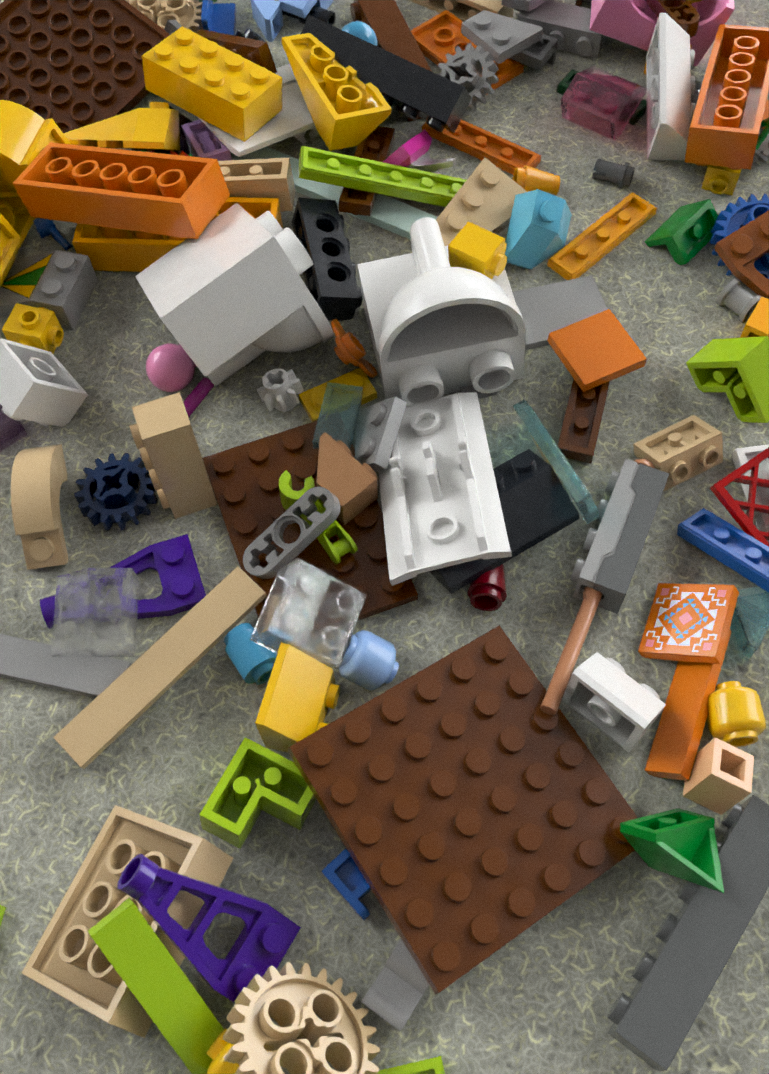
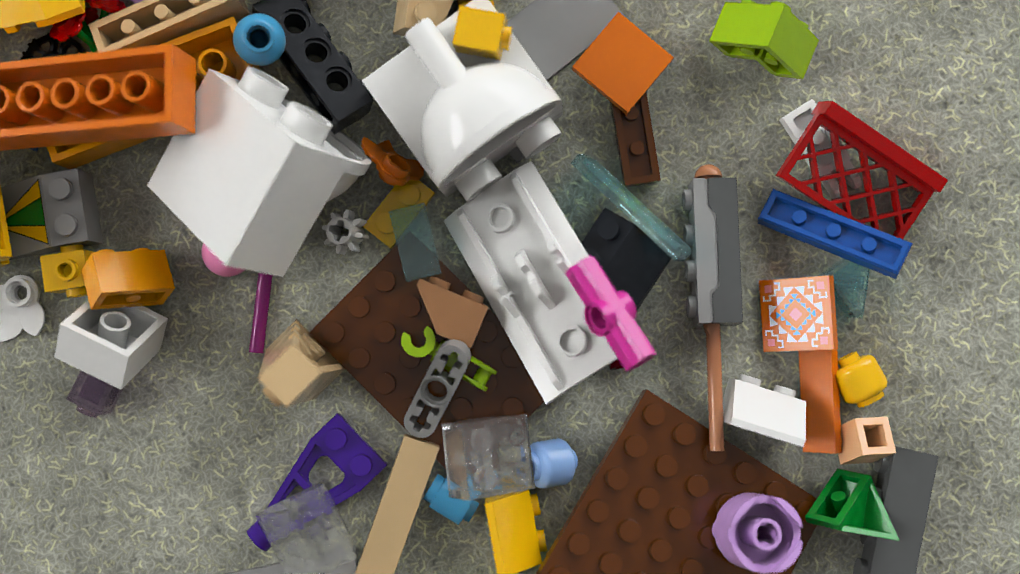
camera: 25 degrees left, 25 degrees up
(36, 505) = (186, 446): tan arch -> none
(74, 346) = (127, 278): none -> light orange brick
(115, 492) = (247, 418): dark blue gear -> none
(291, 208) = (259, 39): none -> dark azure piece
(377, 432) = (461, 248): light grey wing -> none
(491, 506) = (610, 313): none -> dark pink piece
(563, 778) = (761, 514): none -> lavender brick
(682, 449) = (734, 137): tan bracket -> none

